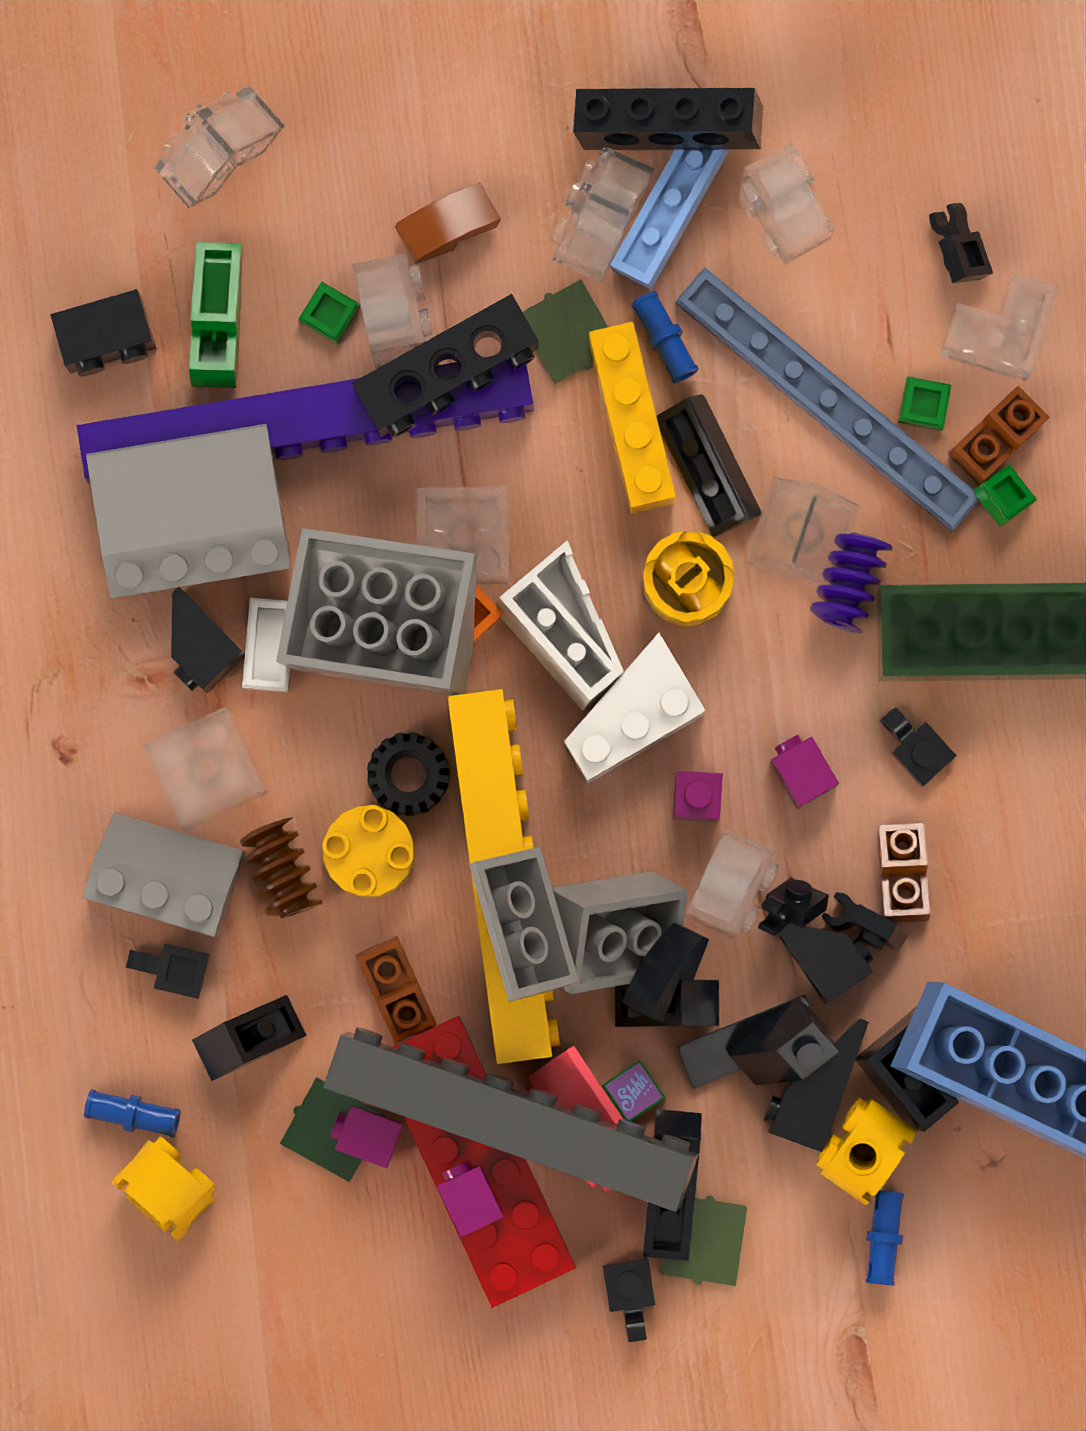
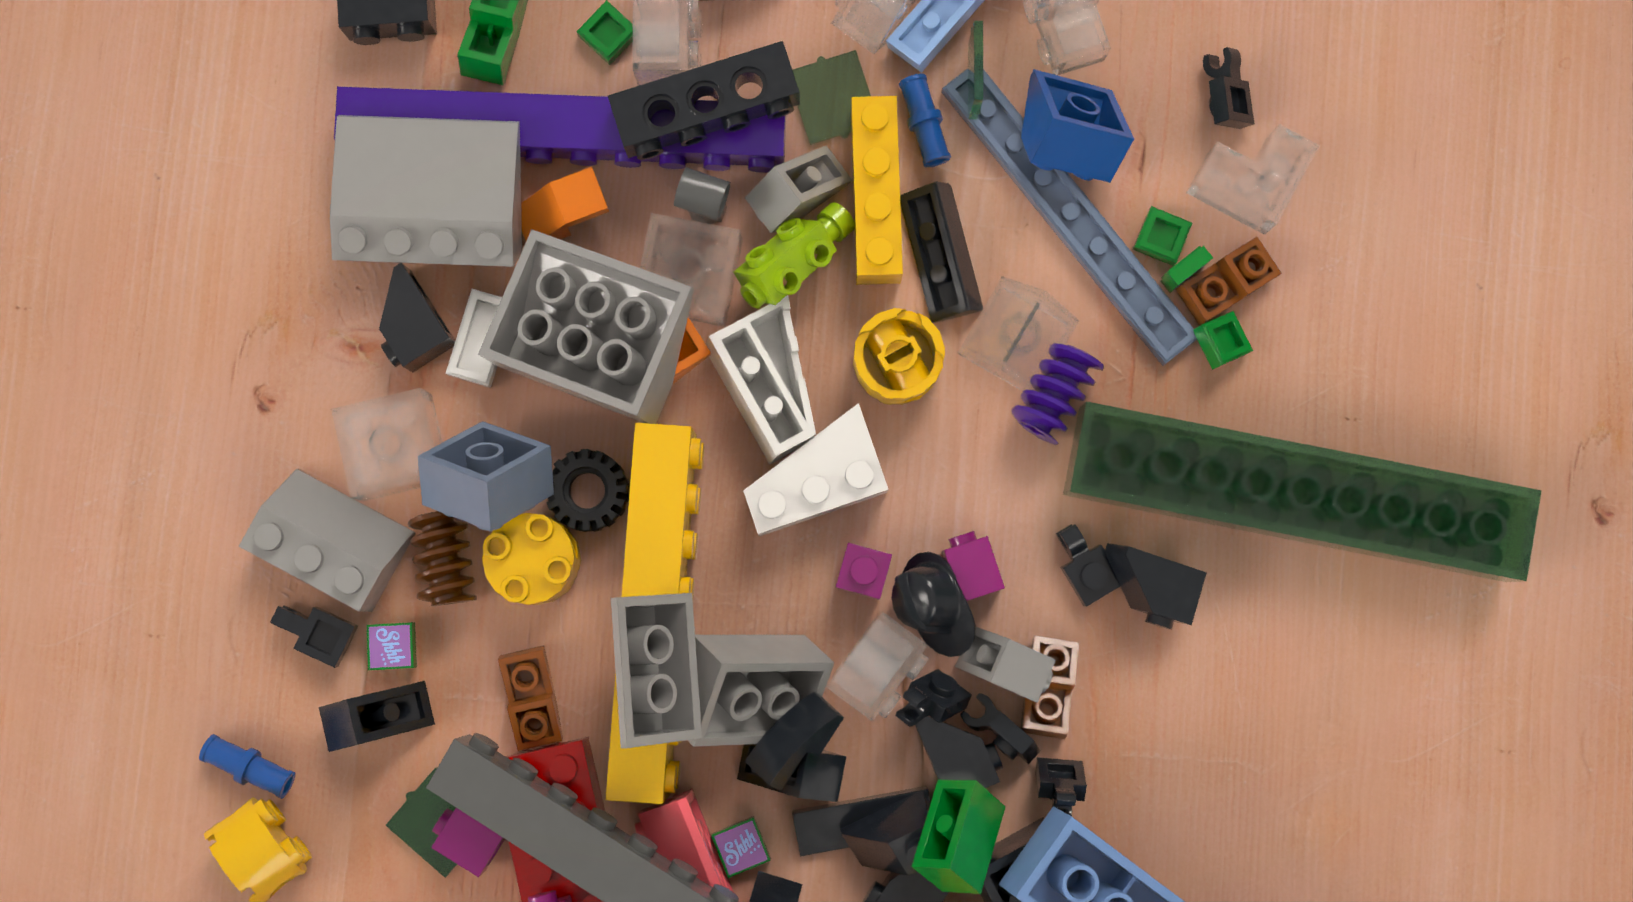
camera: 10 degrees right, 0 degrees up
(247, 967) = (391, 646): none -> tile
(311, 778) = (486, 475): none -> sand blue brick
(324, 497) = (563, 205): none -> orange slope
(463, 460) = (702, 196): none -> dark grey piece
(553, 431) = (797, 187): none -> light grey slope
(562, 500) = (792, 255): none -> lime brick
(705, 280) = (975, 70): none -> clear green piece
(772, 813) = (933, 603): none -> black piece
(814, 314) = (1074, 127): none -> blue slope
(843, 1028) = (959, 836): none -> green brick
(855, 856) = (1007, 664): none -> light grey slope
(932, 960) = (1061, 782): none -> black plate
(953, 432) = (1186, 268): none -> green tile
(987, 750) = (1156, 585): none -> black slope

